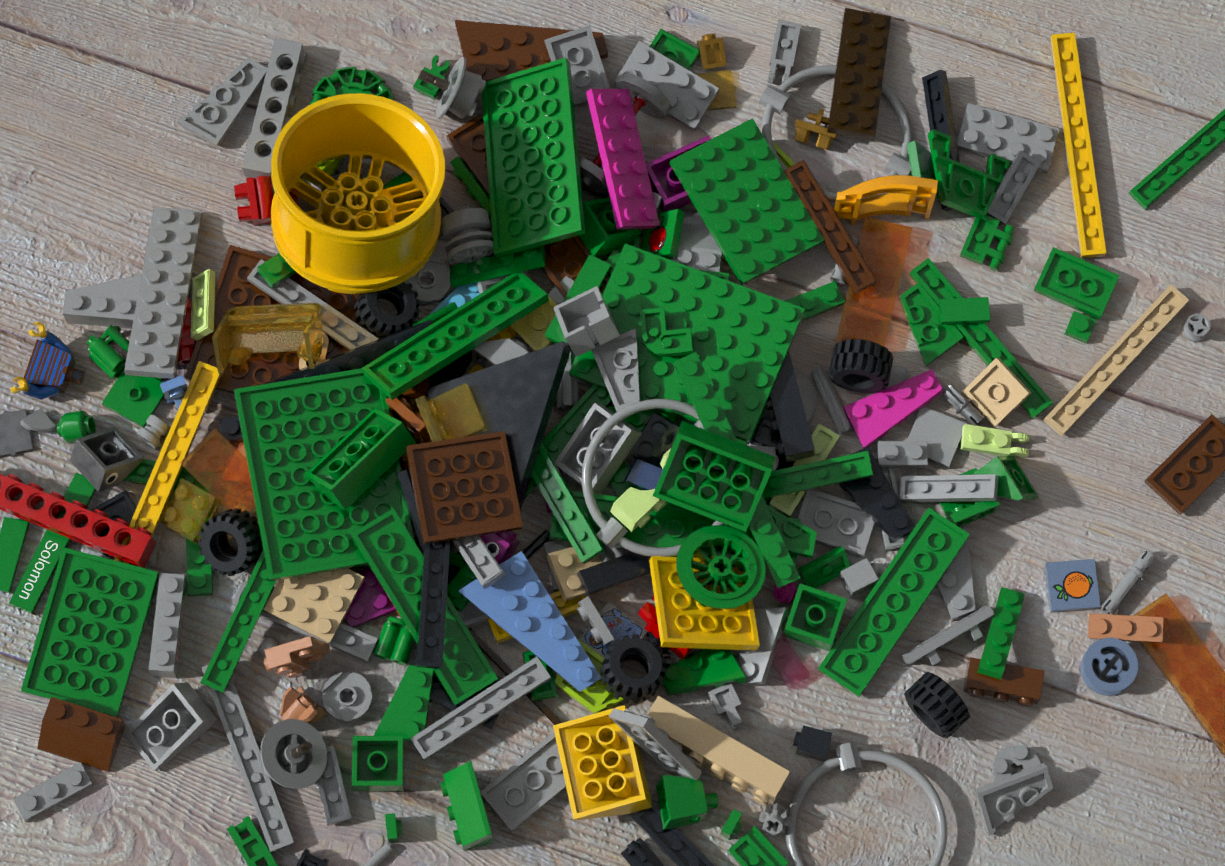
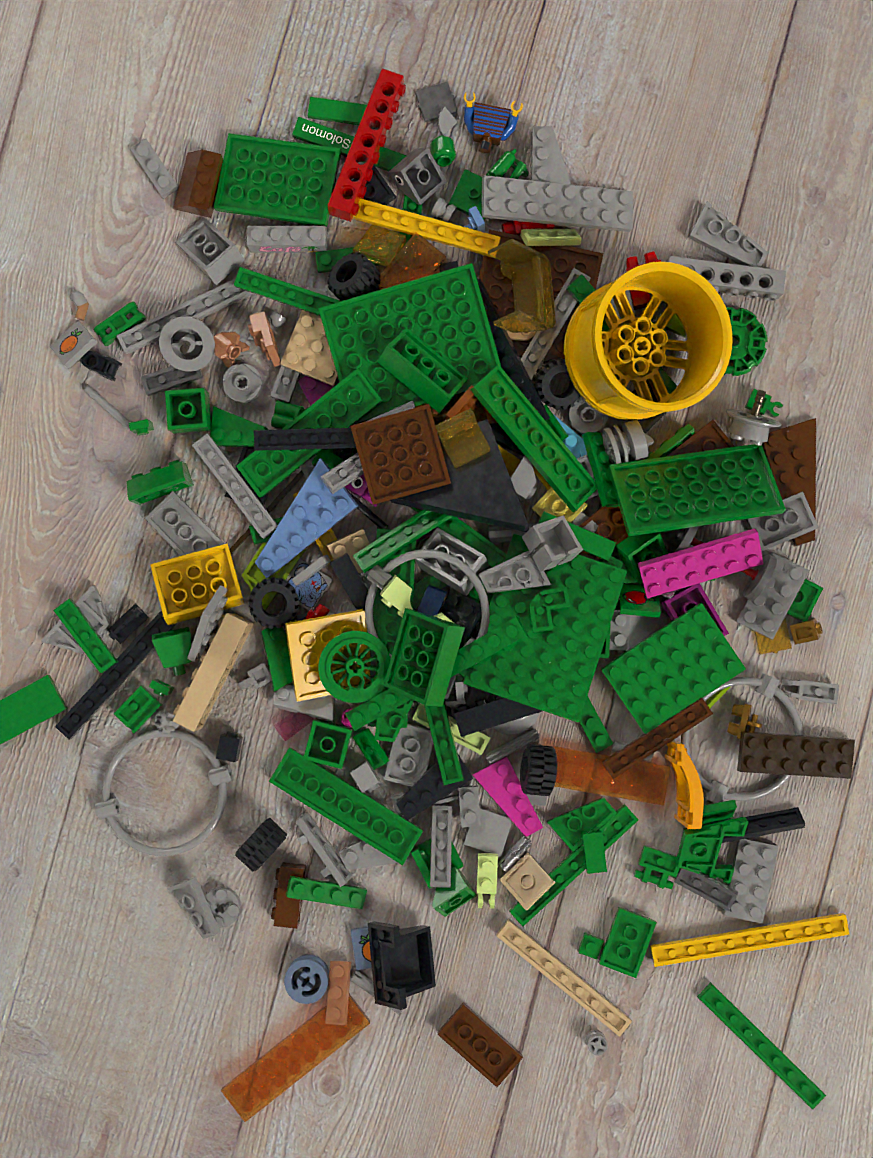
camera: 90 degrees right, 15 degrees up
(1089, 549) = (400, 962): none -> black windscreen

